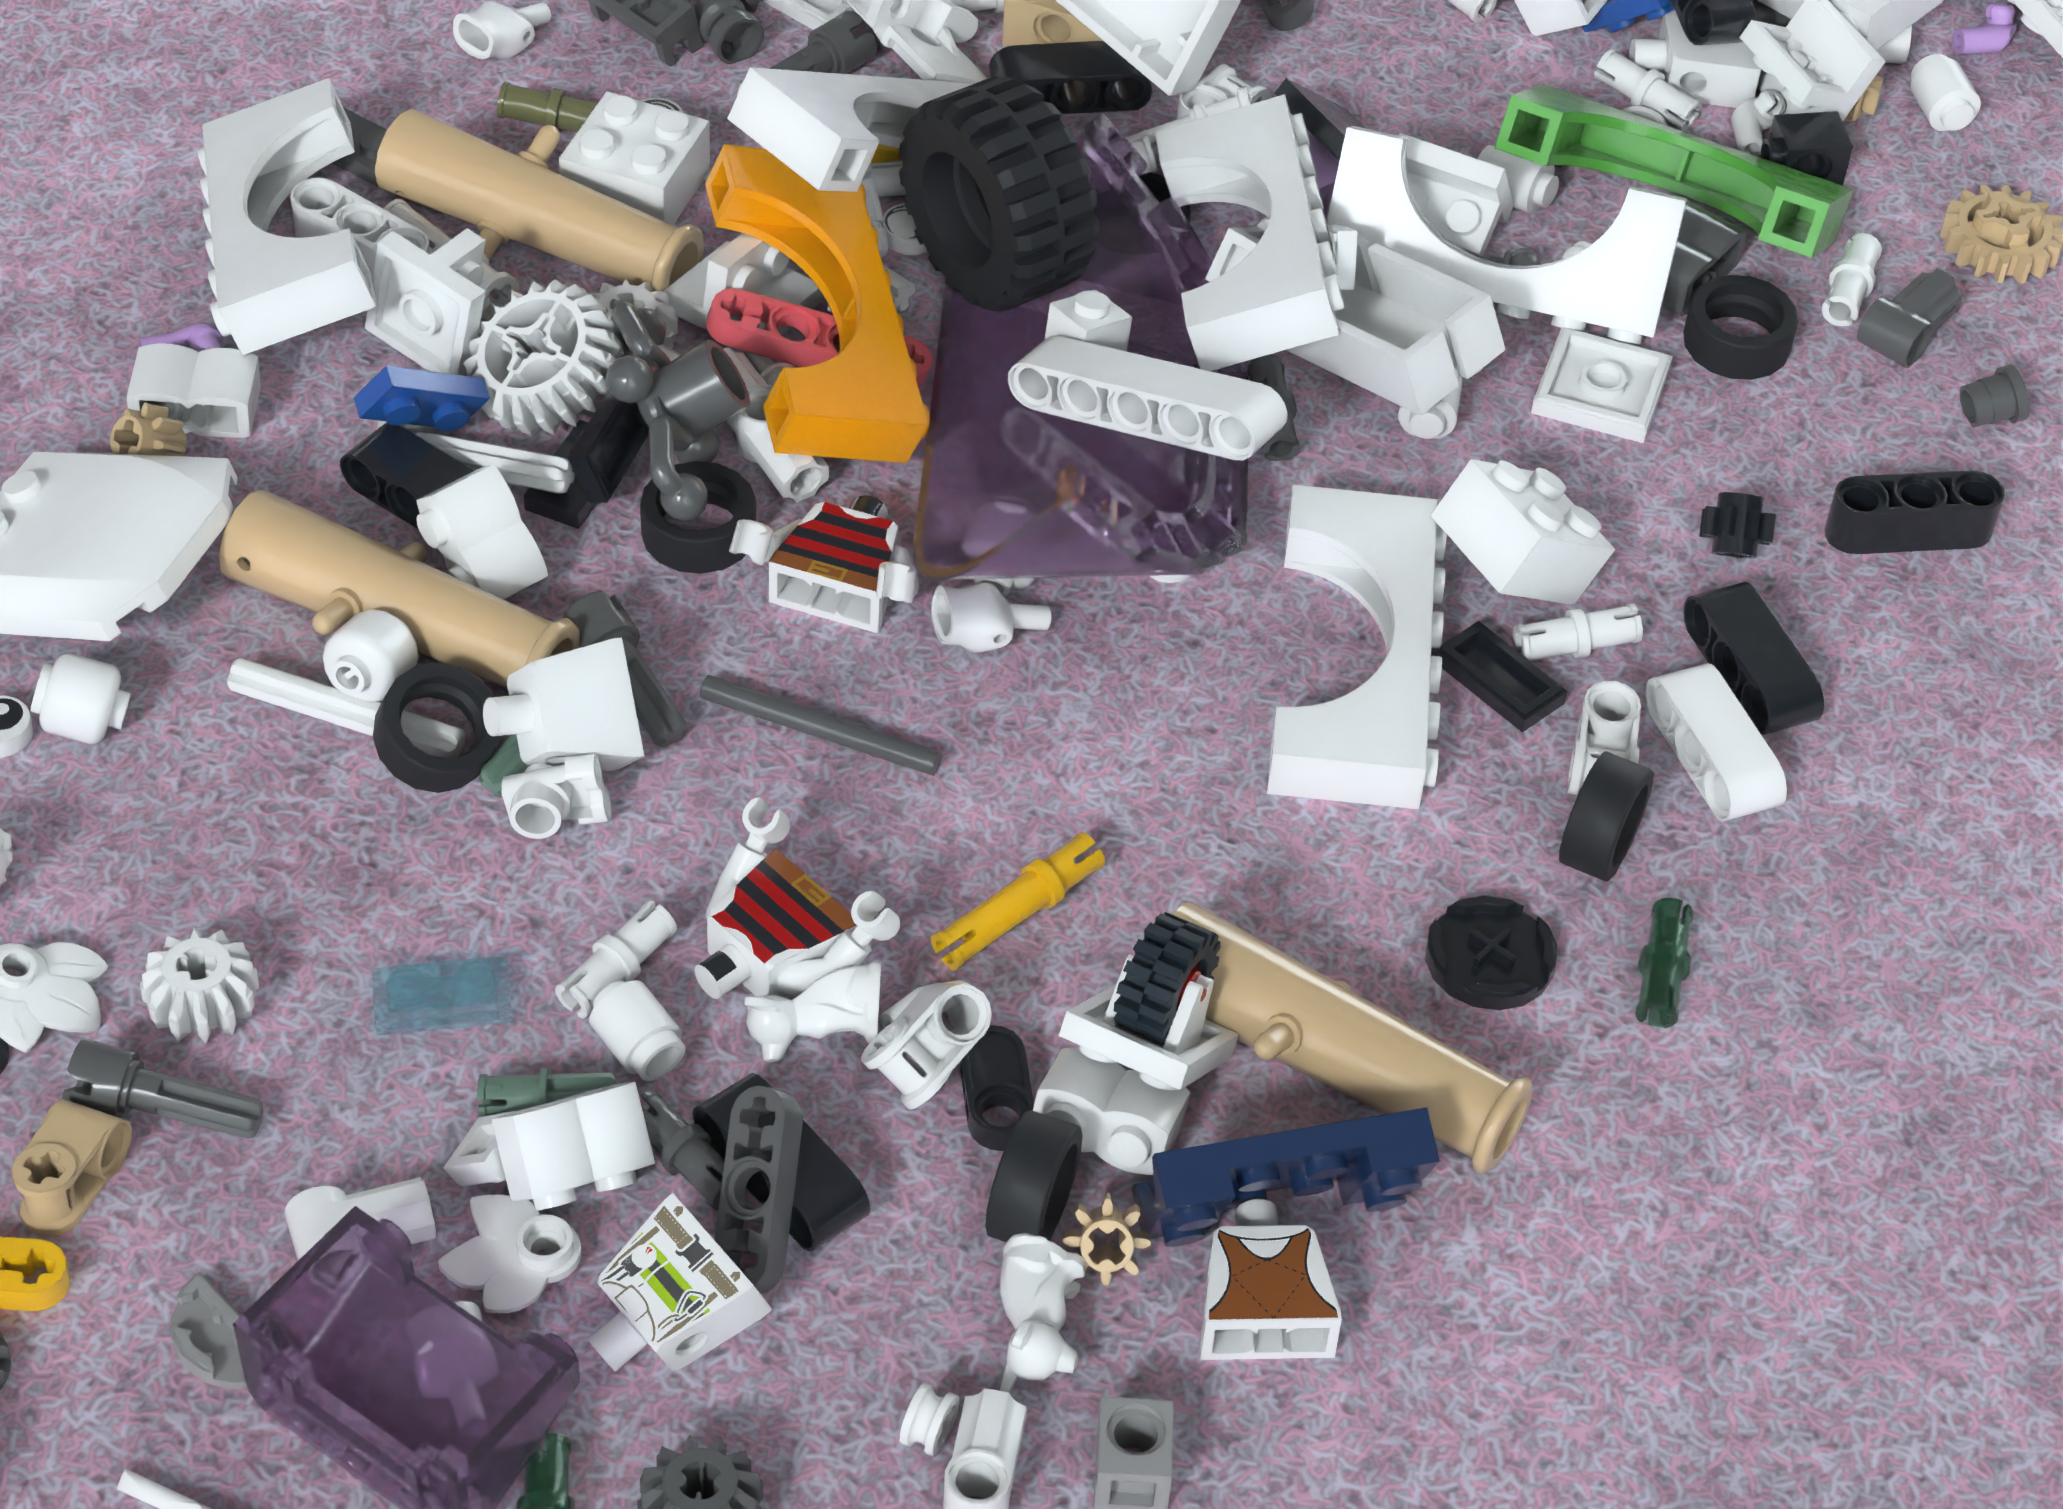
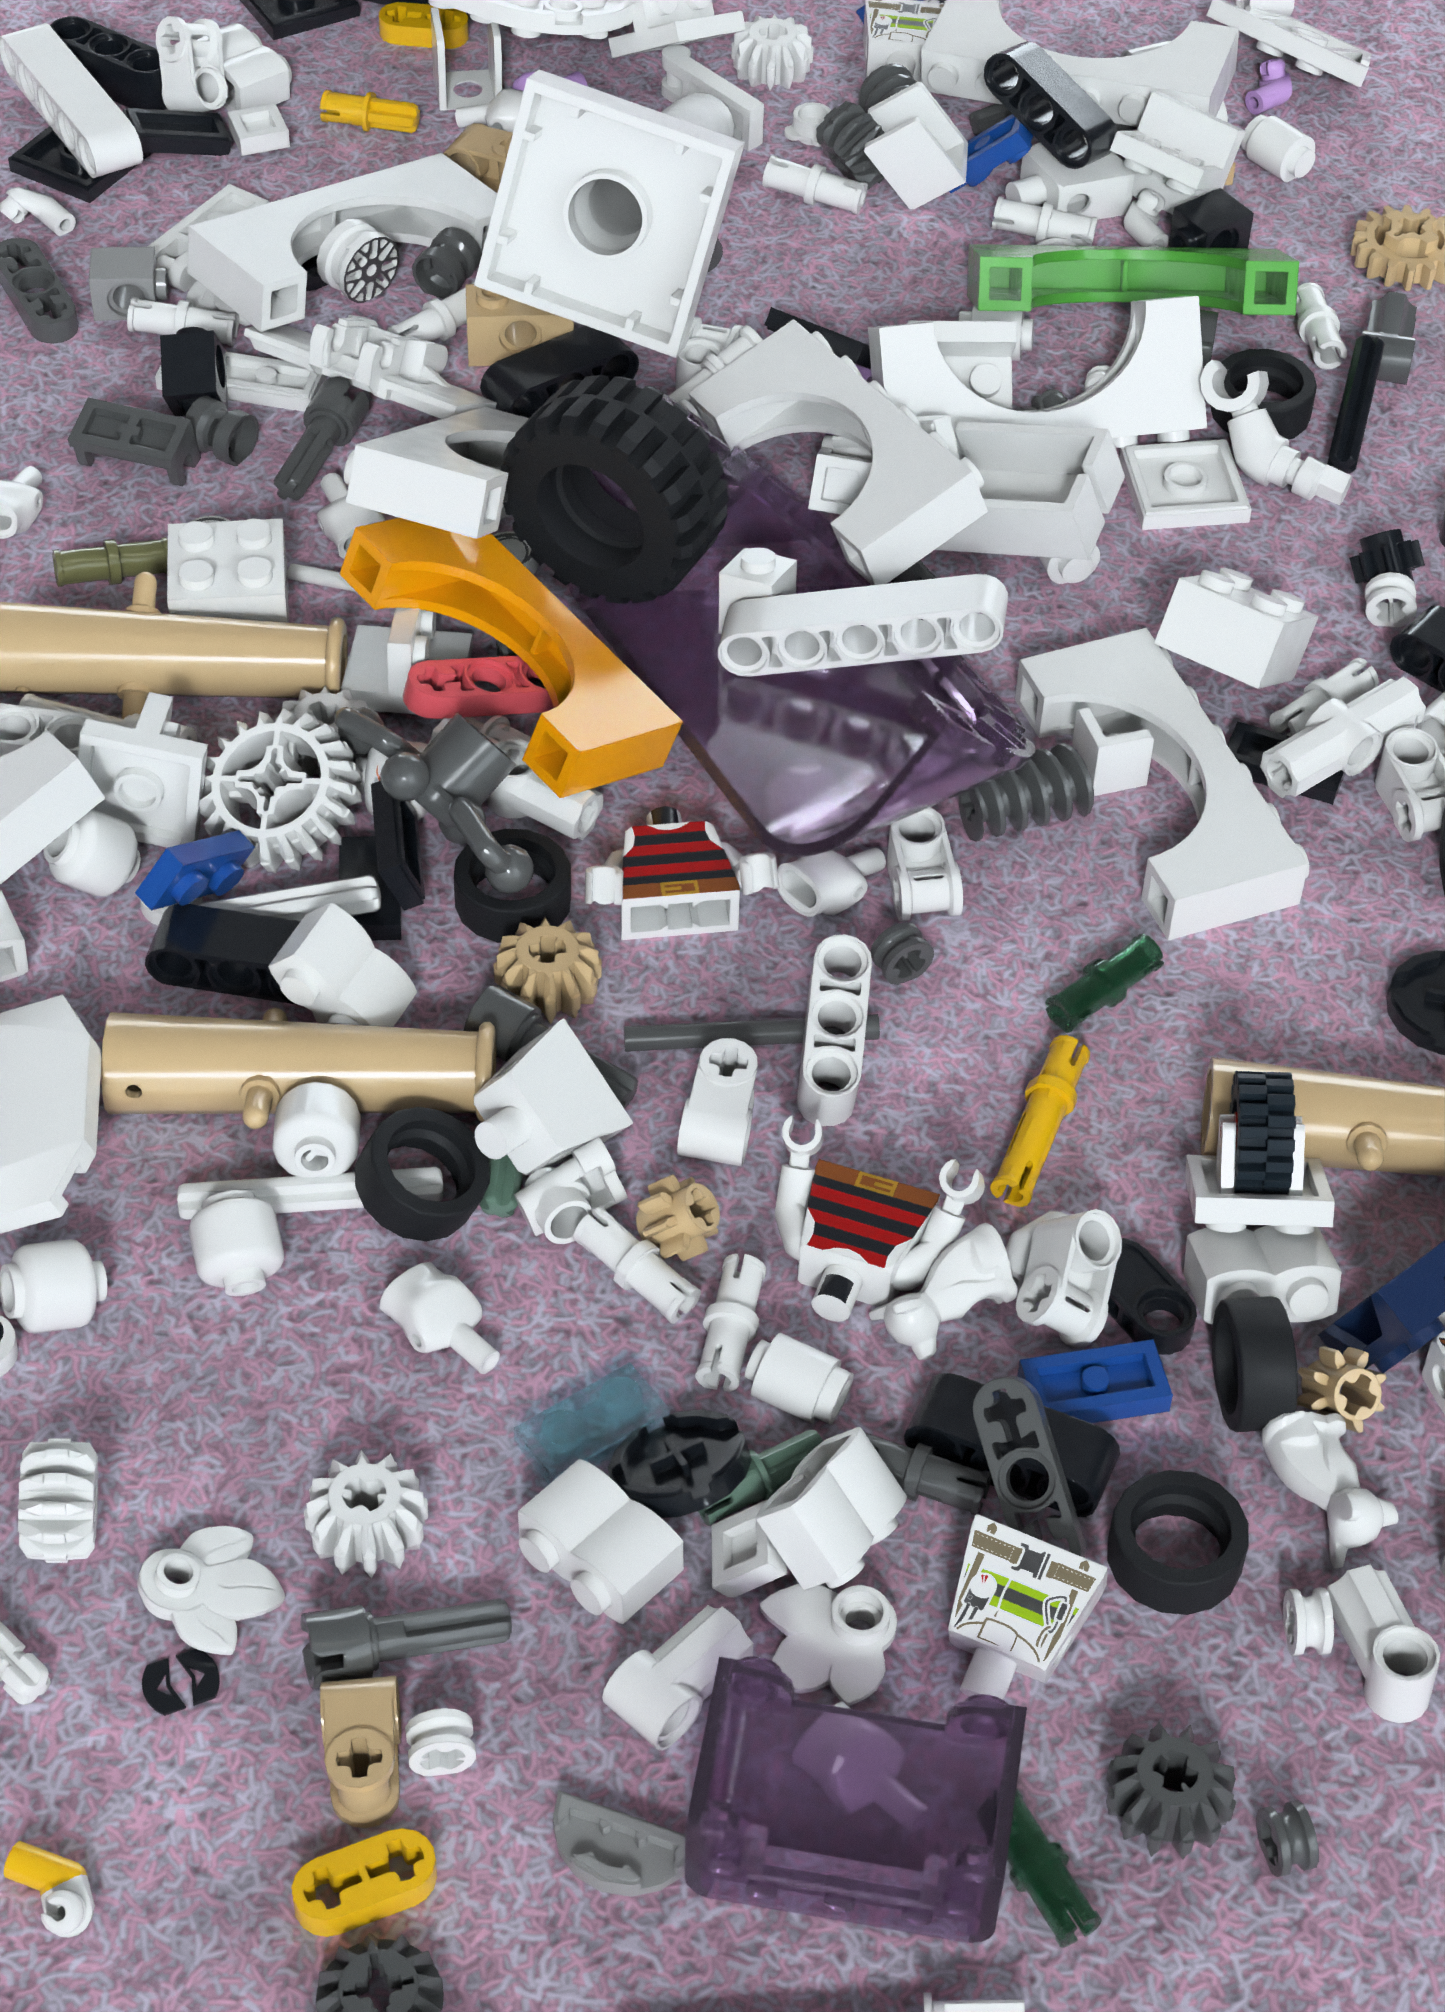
camera: 25 degrees left, 0 degrees up
(130, 1190) = (440, 1742): none -> white bush
(250, 723) = (236, 1242): none -> white head
(354, 351) = (95, 854): none -> white head
(371, 1088) = (599, 1542): none -> white brick
(376, 850) = (438, 1314): none -> white piece
(479, 1056) = (683, 1464): none -> black tile
(571, 878) = (636, 1264): none -> white pin
(628, 852) = (678, 1217): none -> tan gear
(674, 599) = (549, 967): none -> tan gear
(736, 770) = (721, 1104): none -> white piece
(859, 1349) = (1177, 1588): none -> black tyre
(879, 721) = (841, 1005): none -> white beam
(896, 1143) = (1101, 1381): none -> blue plate
(994, 693) = (902, 953): none -> dark grey bush
(1072, 635) = (923, 867): none -> white piece
(1168, 805) = (1104, 982): none -> clear green pin
(1217, 607) = (1046, 781): none -> dark grey piece
(1326, 610) = (1115, 759): none -> white panel
(1555, 669) = (1342, 737): none -> white piece
(1692, 363) = (1259, 447): none -> white piece
(1721, 550) = (1390, 586): none -> white bush
(1824, 366) = (1356, 403): none -> black axle

